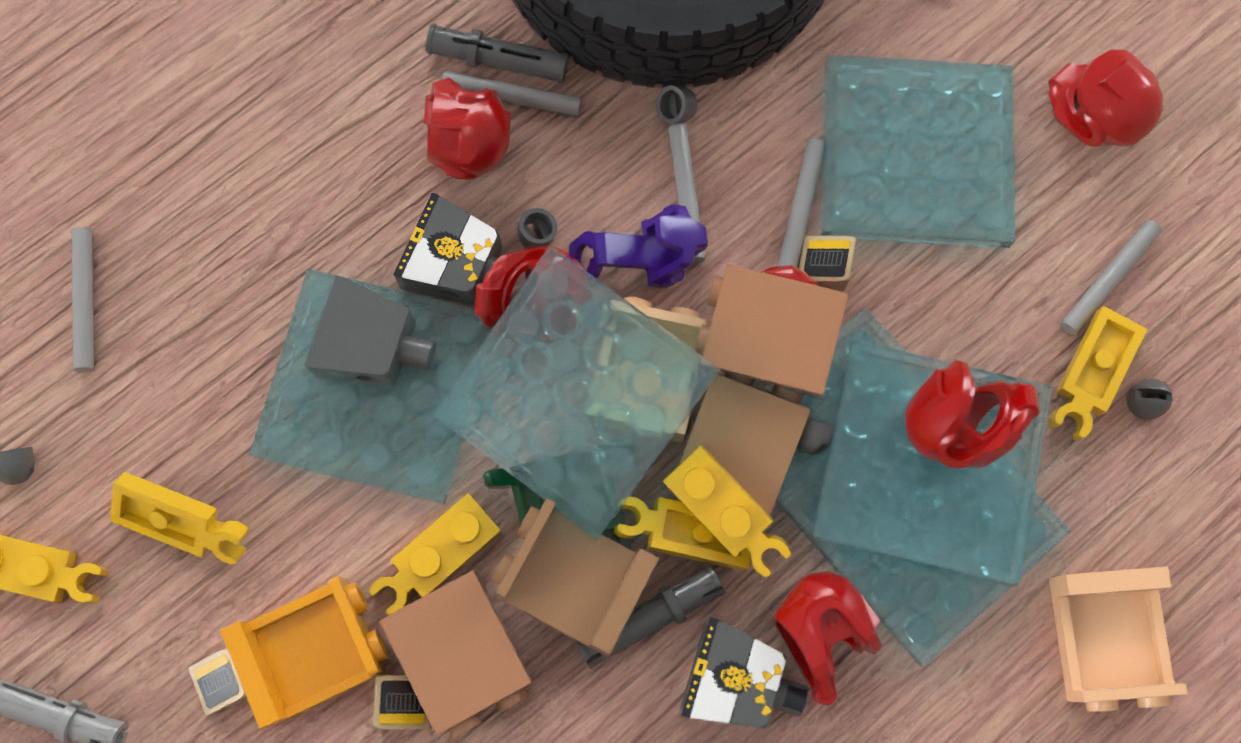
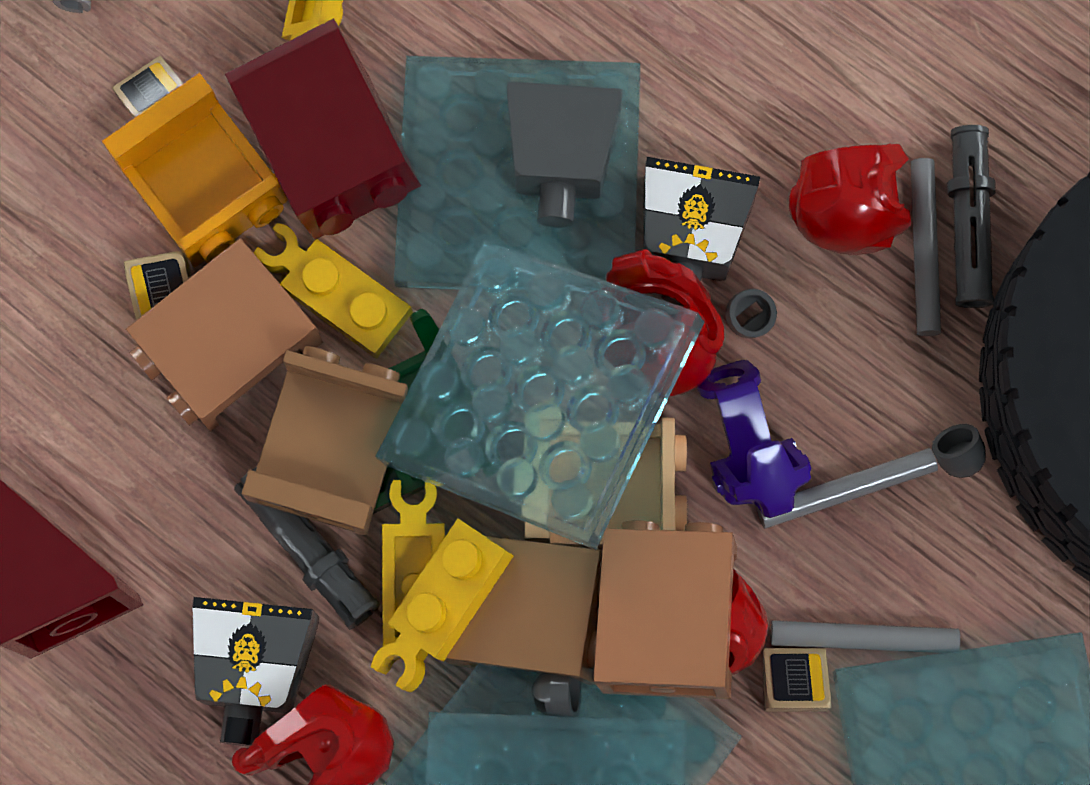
camera: 85 degrees right, 0 degrees up
(302, 528) = (323, 130): none -> dark red slope

